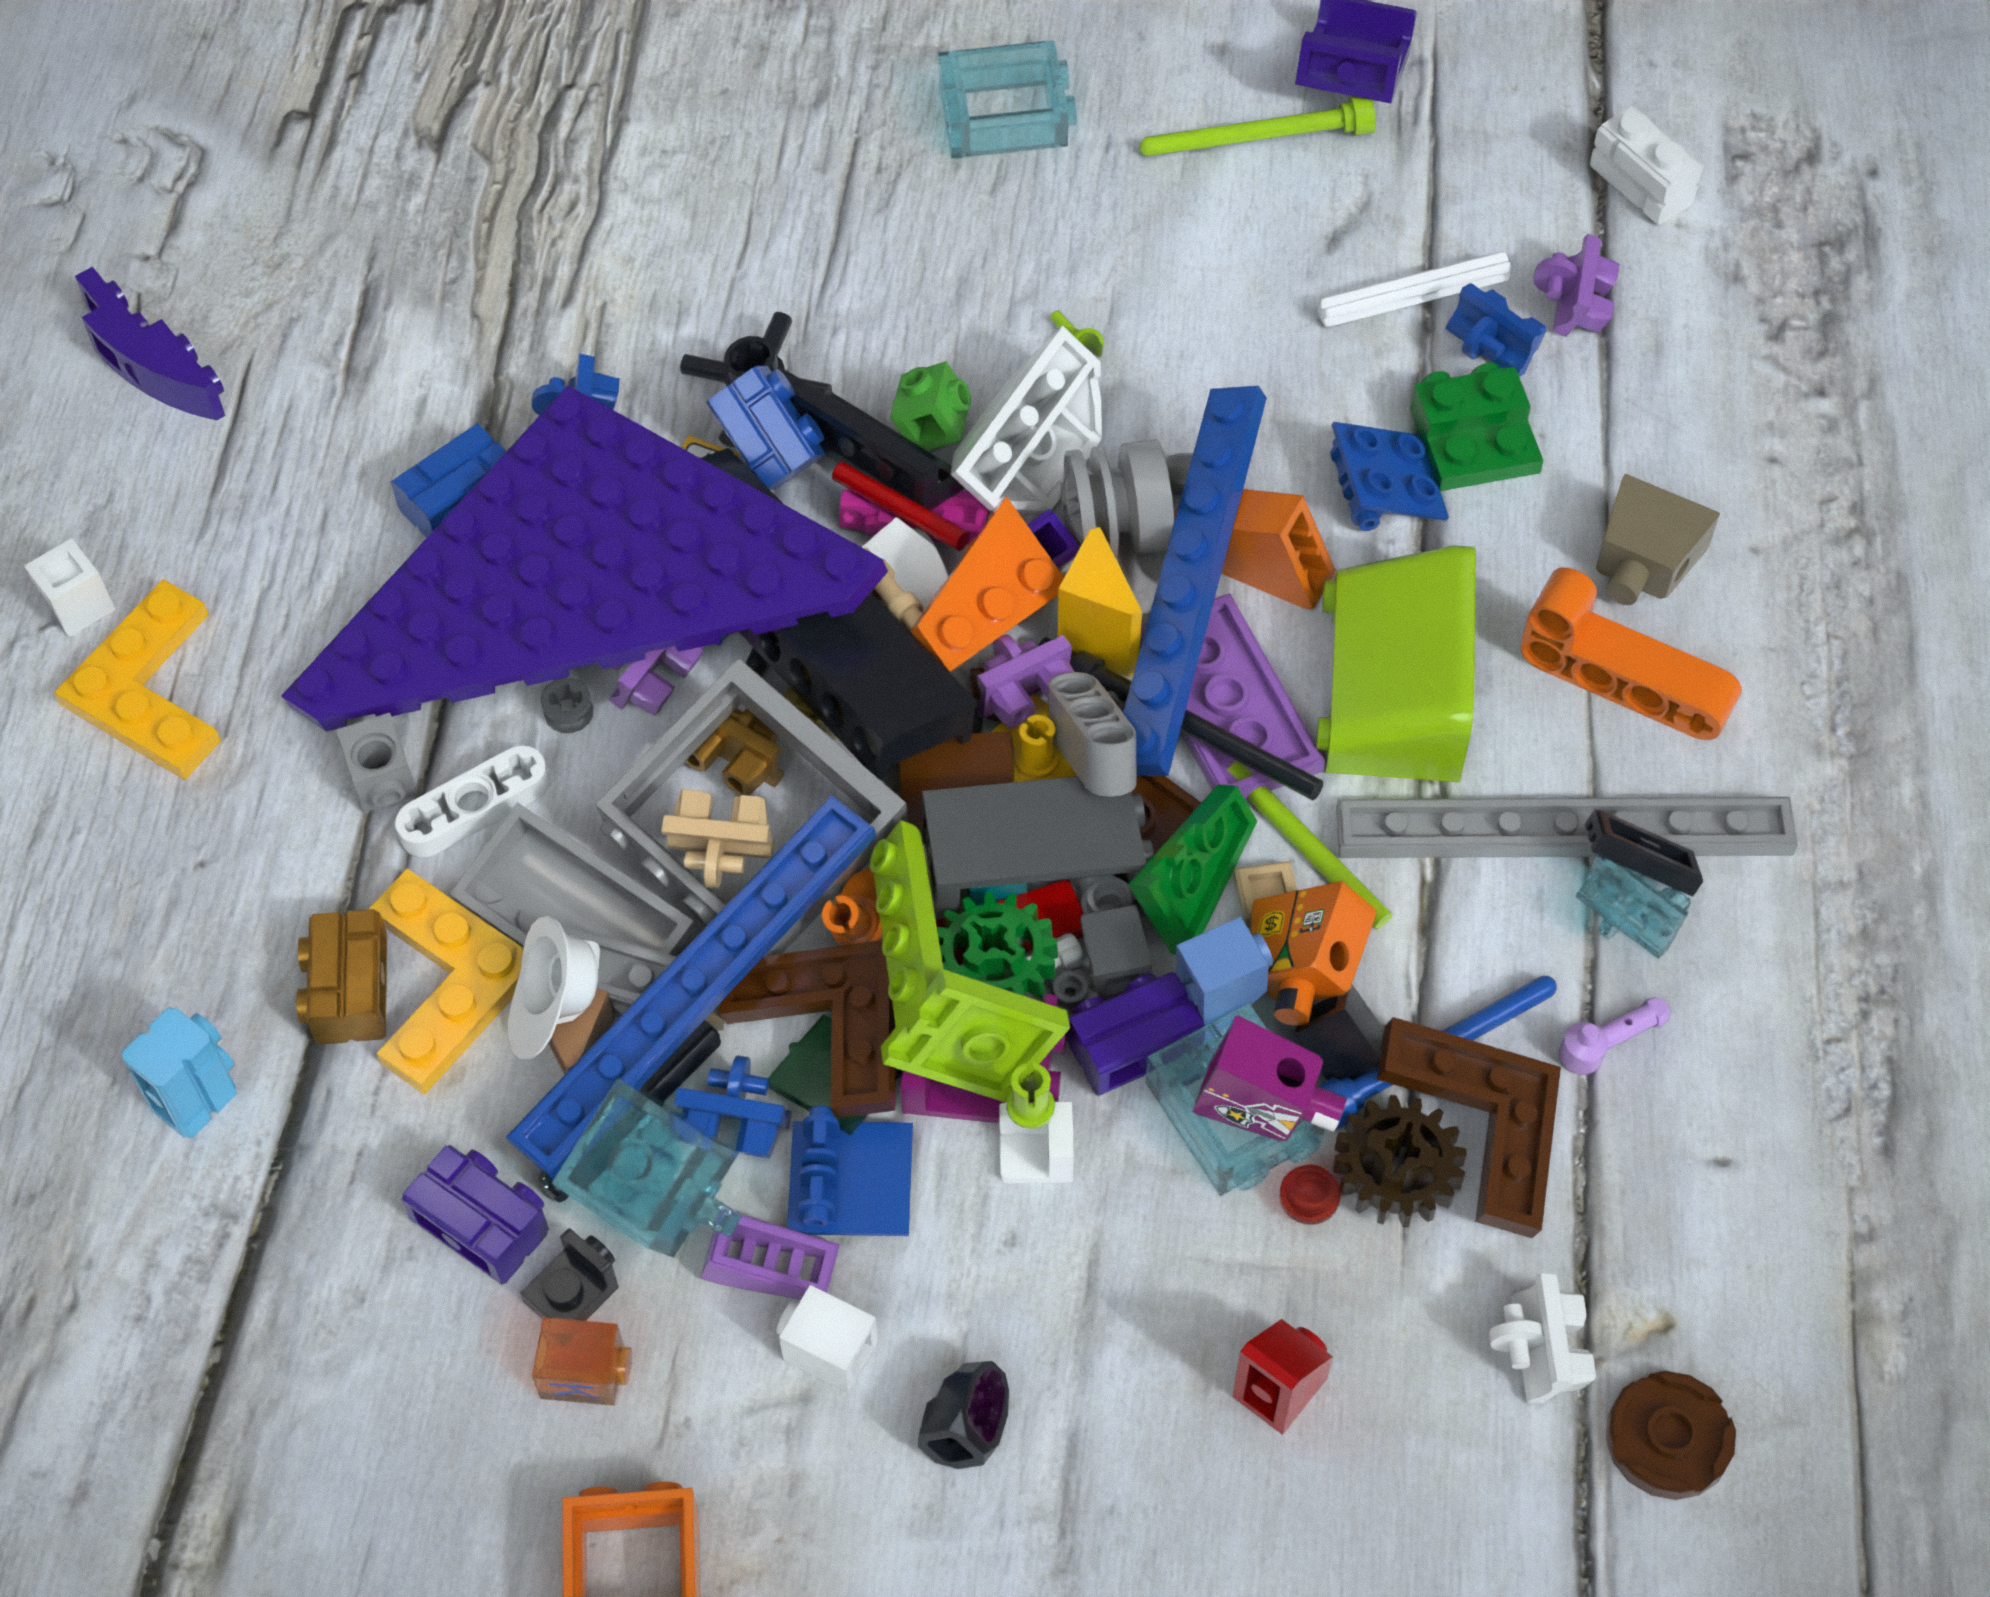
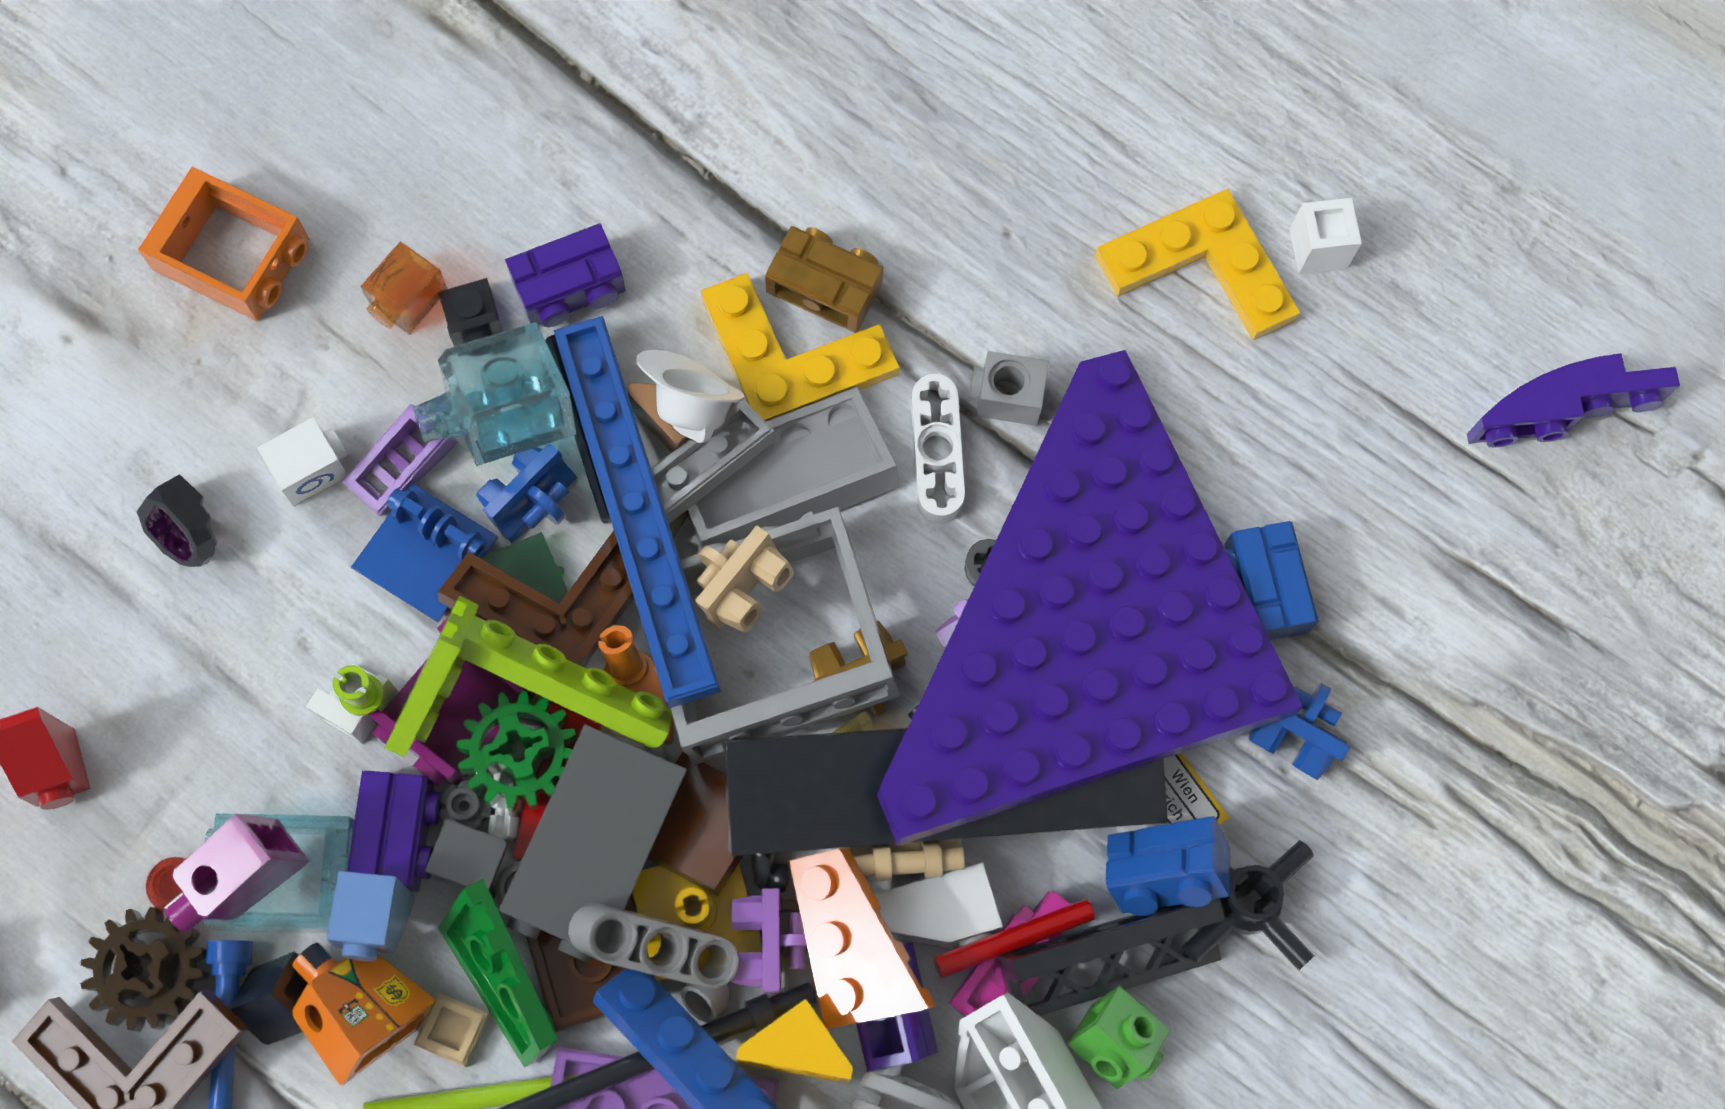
camera: 115 degrees right, 15 degrees up
(181, 1070) = (799, 121): medium azure brick -> none

